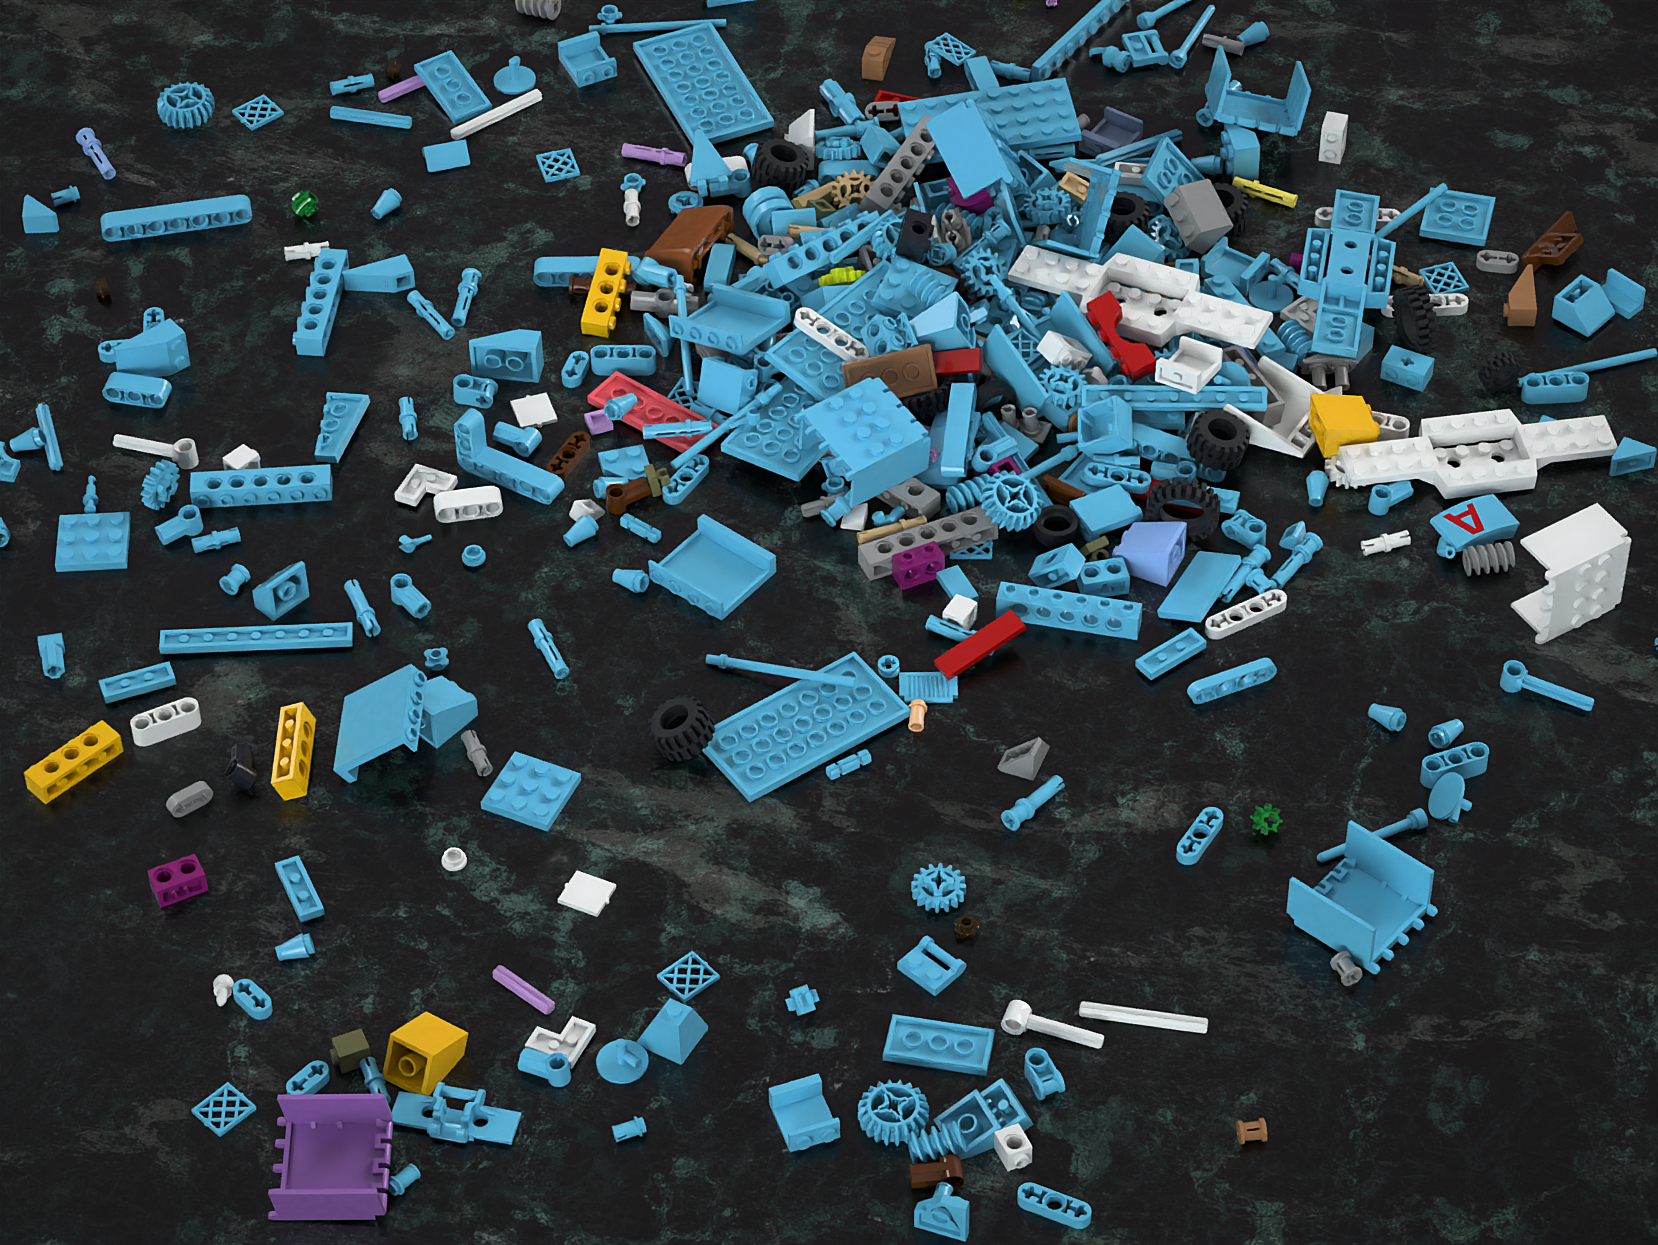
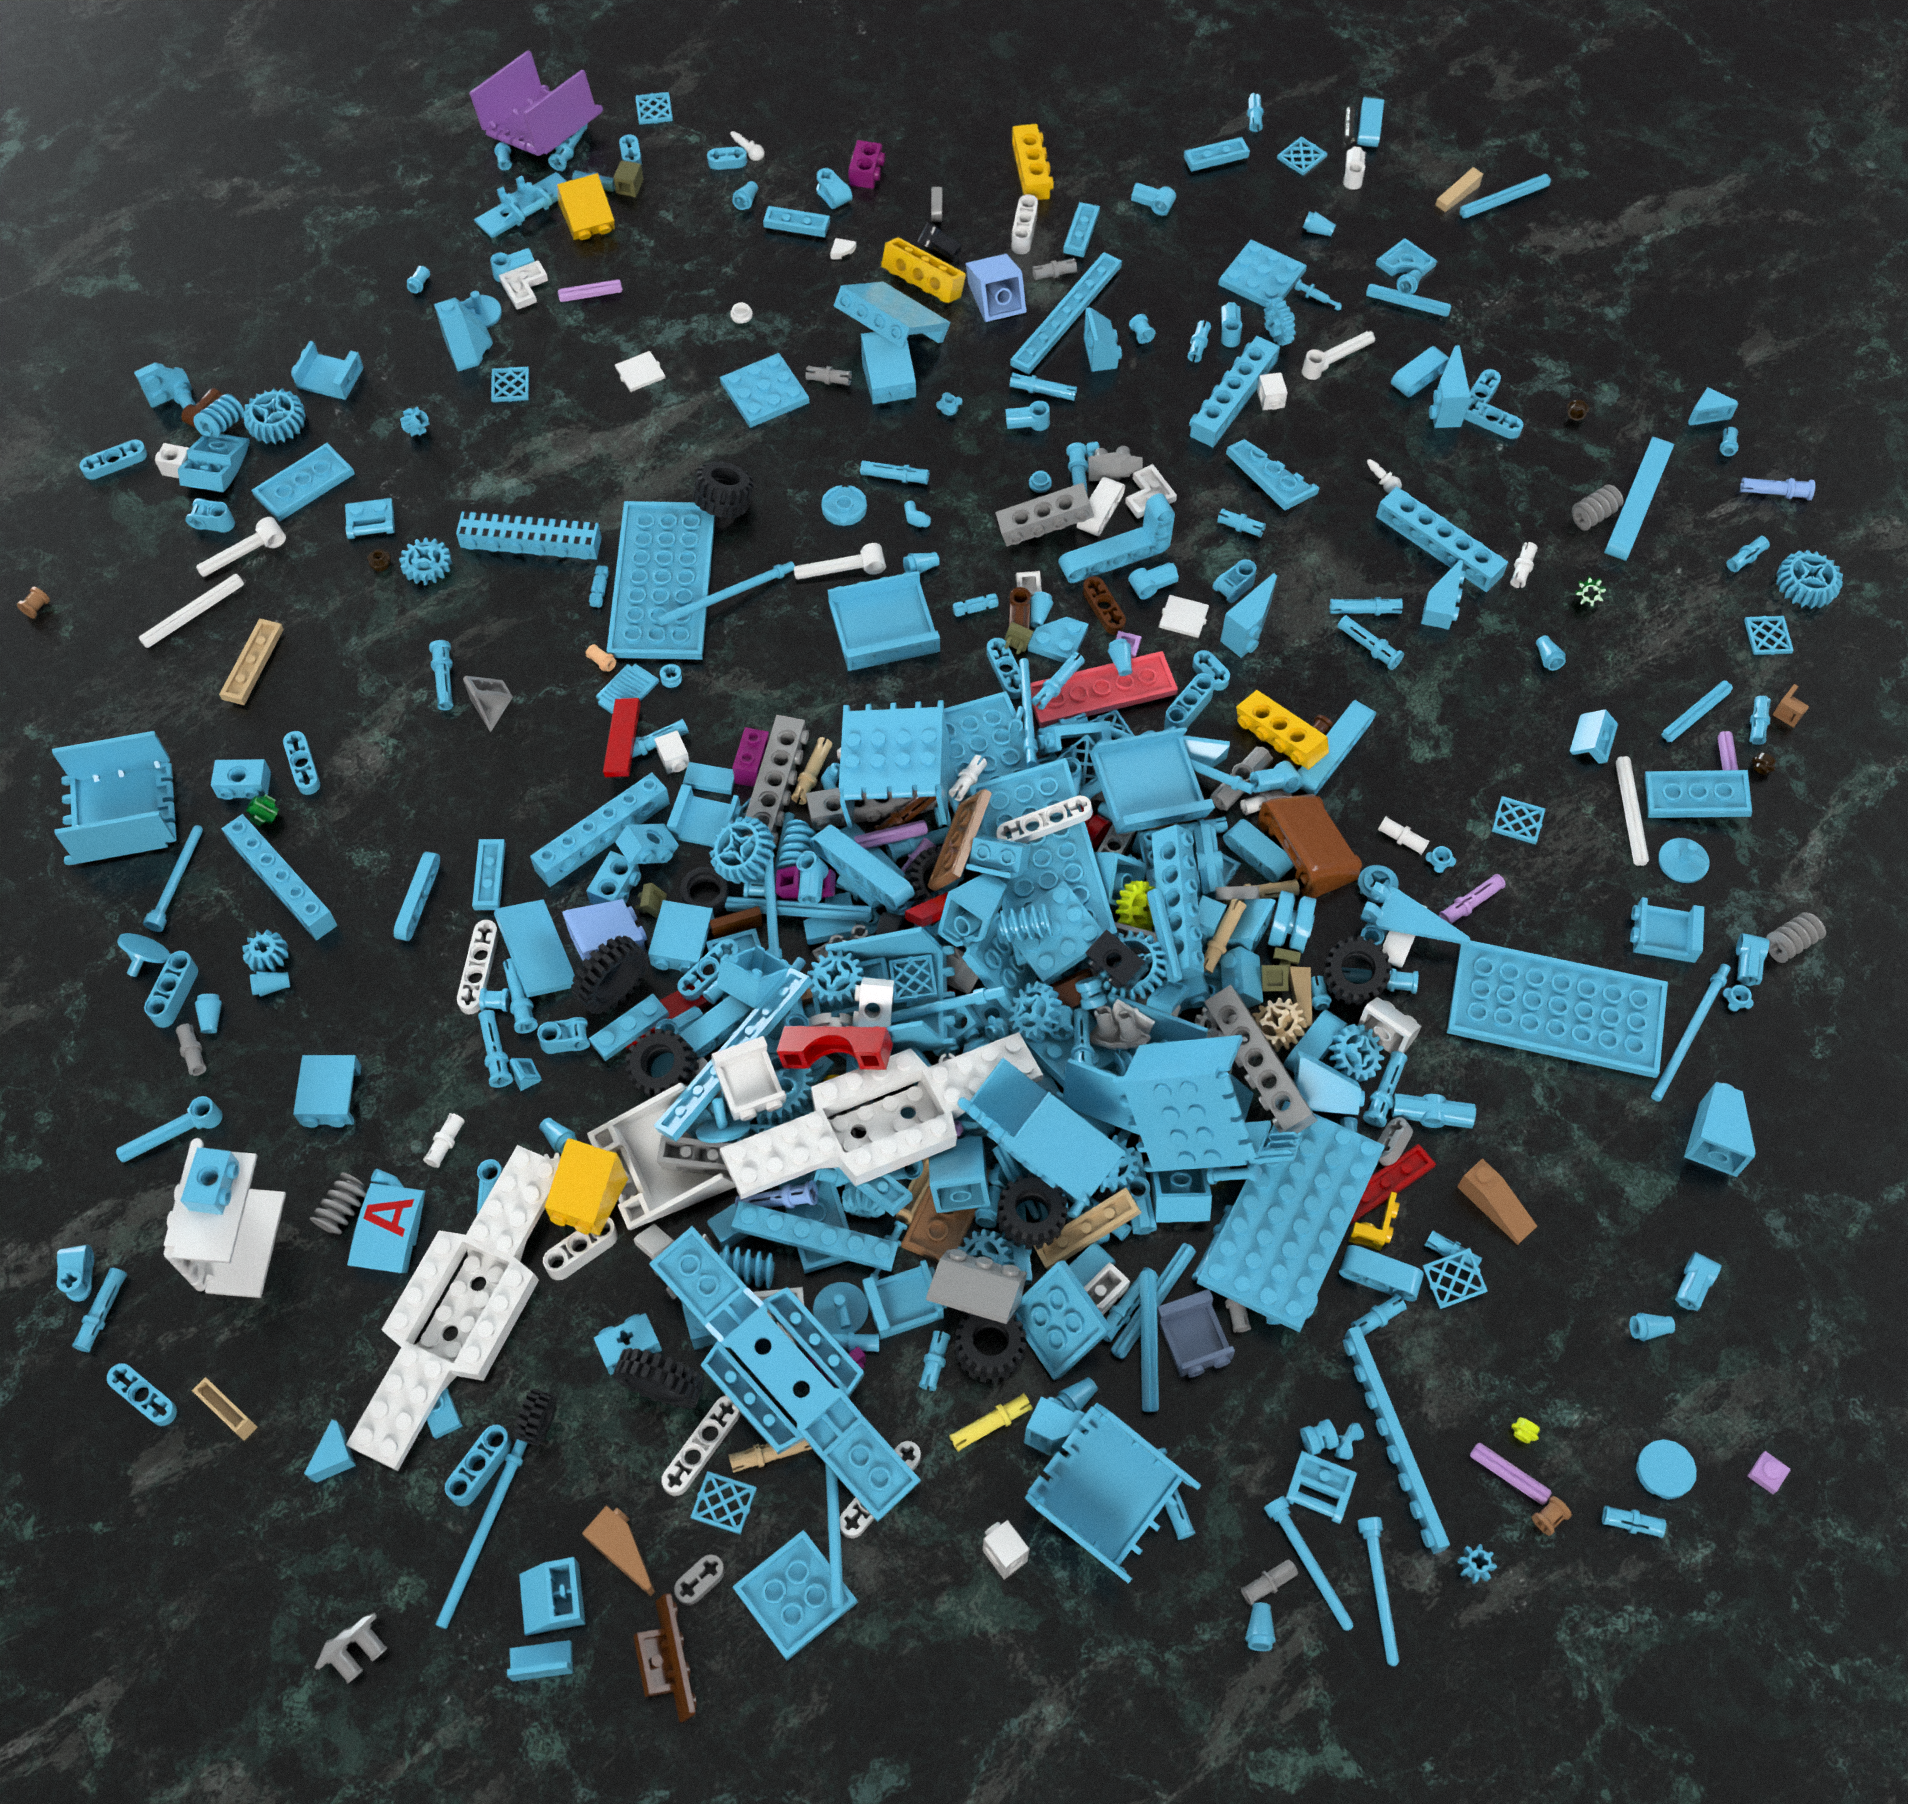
camera: 125 degrees right, 15 degrees up
(184, 146) = (1748, 554): none -> medium azure pin
(205, 676) = (1054, 269): none -> light grey pin
(210, 233) = (1597, 507): none -> light grey piece
(234, 886) = (832, 188): none -> medium azure piece
(263, 693) = (997, 287): none -> light blue slope
(280, 361) = (1387, 480): none -> white bar
(305, 839) = (841, 248): none -> white tile
(323, 76) = (1790, 709): none -> medium nougat panel
(424, 519) = (1113, 465): none -> light grey connector
(436, 539) = (1077, 463): none -> medium azure pin
(506, 515) = (1044, 514): none -> light grey brick
(567, 20) = (1752, 953): none -> medium azure piece
(581, 530) = (1005, 562): medium azure cone -> none
(585, 612) = (916, 517): none -> medium azure arm
(612, 665) = (844, 505): none -> medium azure tile
(659, 610) = (870, 560): none -> white axle
(846, 837) = (529, 535): none -> medium azure brick
(946, 88) = (1368, 1235): none -> yellow bracket
(994, 562) = (698, 818): none -> medium azure panel
(1148, 933) = (251, 661): none -> tan plate
(1255, 235) = (934, 1361): none -> medium azure pin
(1255, 855) = (253, 773): none -> medium azure brick
(1306, 768) = (279, 877): none -> medium azure brick
(1368, 733) = (265, 951): none -> medium azure gear
(1420, 621) = (325, 1090): none -> medium azure panel
(1481, 722) = (190, 1049): none -> light grey pin
(1565, 536) = (207, 1165): none -> medium azure brick

